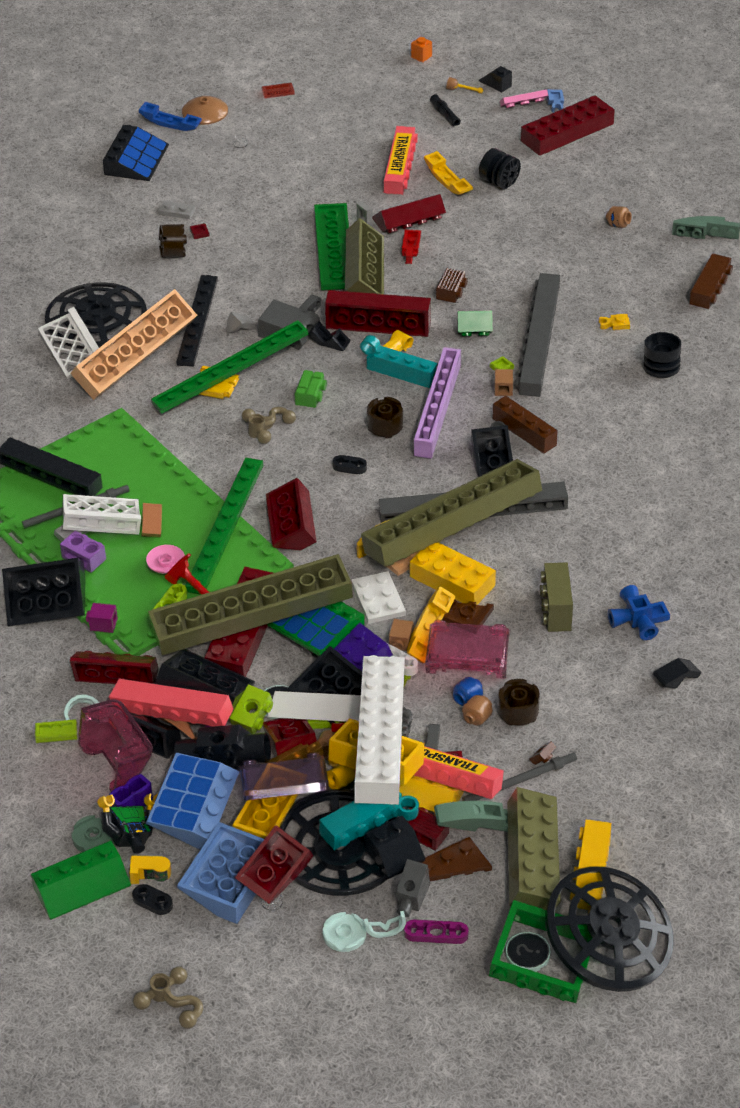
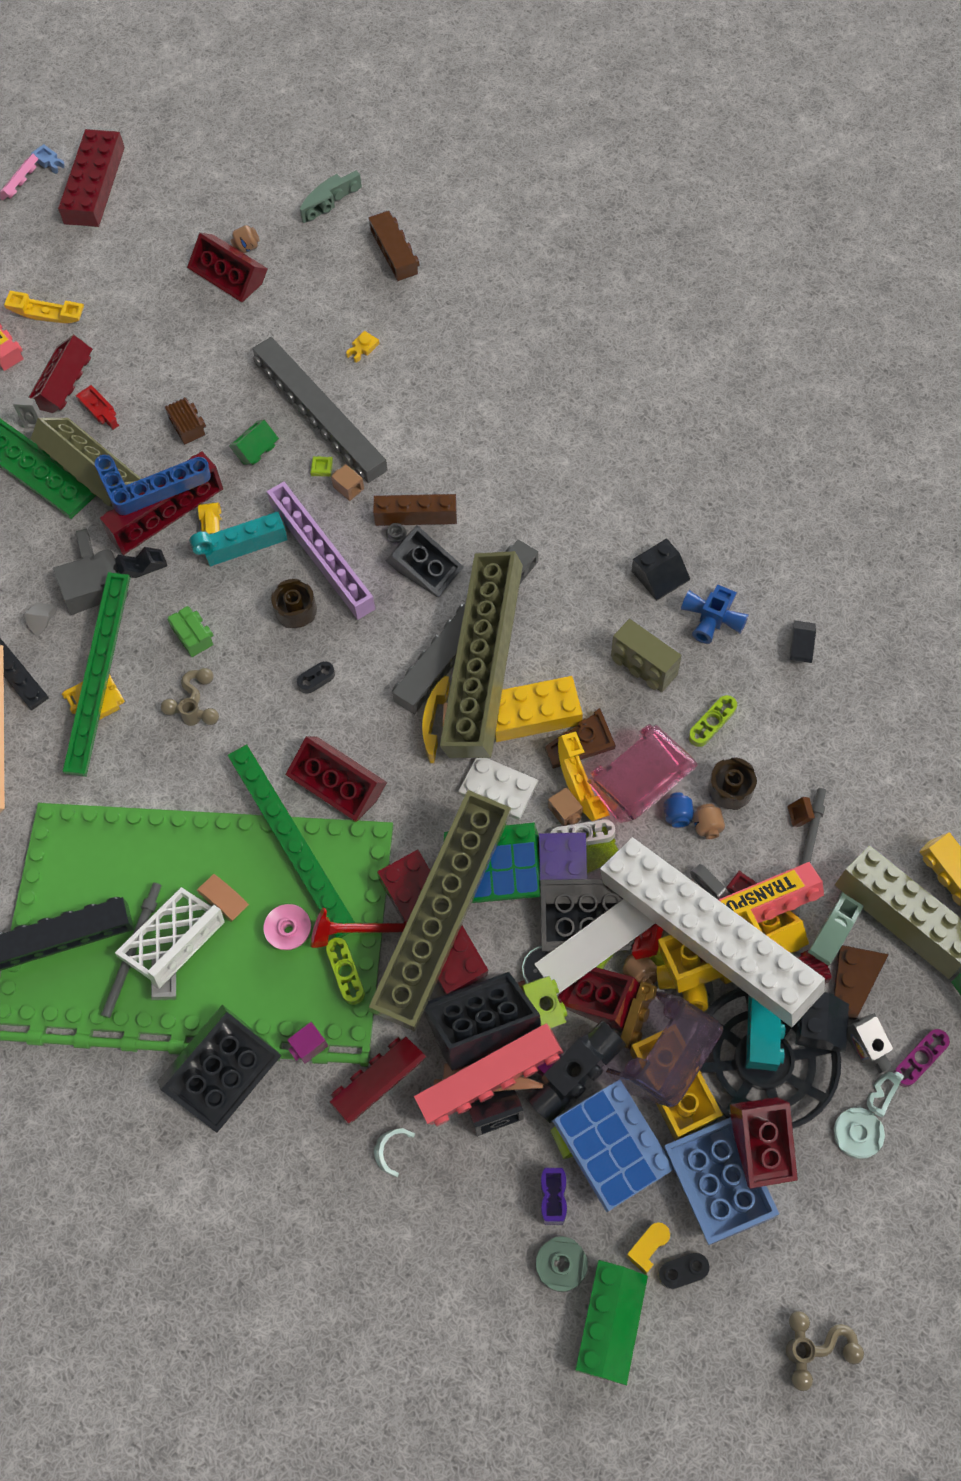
camera: 45 degrees left, 20 degrees up
(56, 731) = (400, 1196): lime plate -> none
(84, 548) = (202, 997): medium lavender brick -> none
(115, 733) = (489, 1155): clear pink windscreen -> none
(127, 823) = (588, 1223): torso -> none
(357, 289) = (150, 484): none -> blue beam
(499, 168) = (84, 267): black wheel -> none
(563, 663) = (714, 711): none -> lime beam
(587, 223) = (226, 267): none -> dark red slope
(637, 566) = (660, 569): none -> black slope
(662, 354) = (446, 349): black wheel -> none

